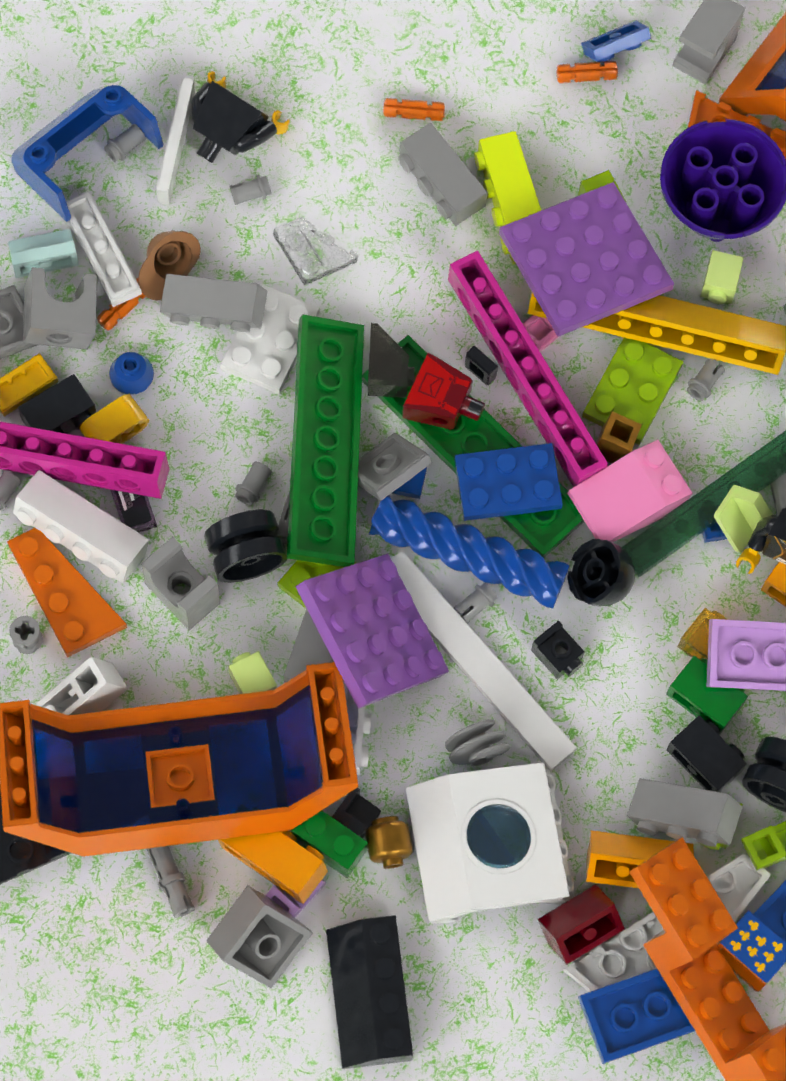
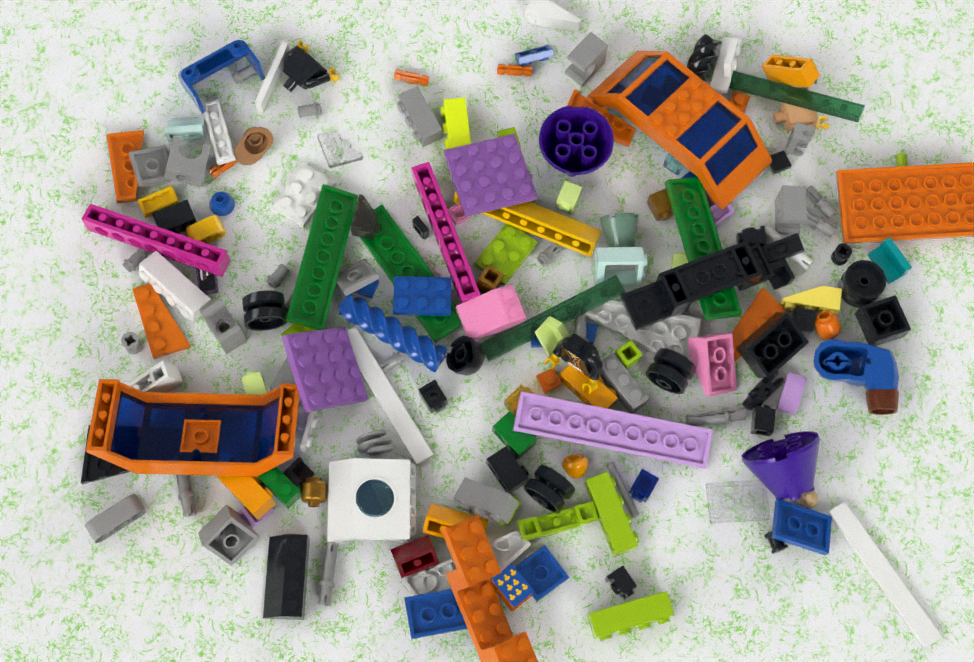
camera: 10 degrees right, 0 degrees up
(58, 938) = (115, 518): none -> light grey beam
(213, 302) = (274, 170): light grey brick -> none
(439, 983) = (326, 583): none -> light grey pin
(441, 395) = (392, 241): torso -> none
(746, 594) = (549, 380): none -> orange plate

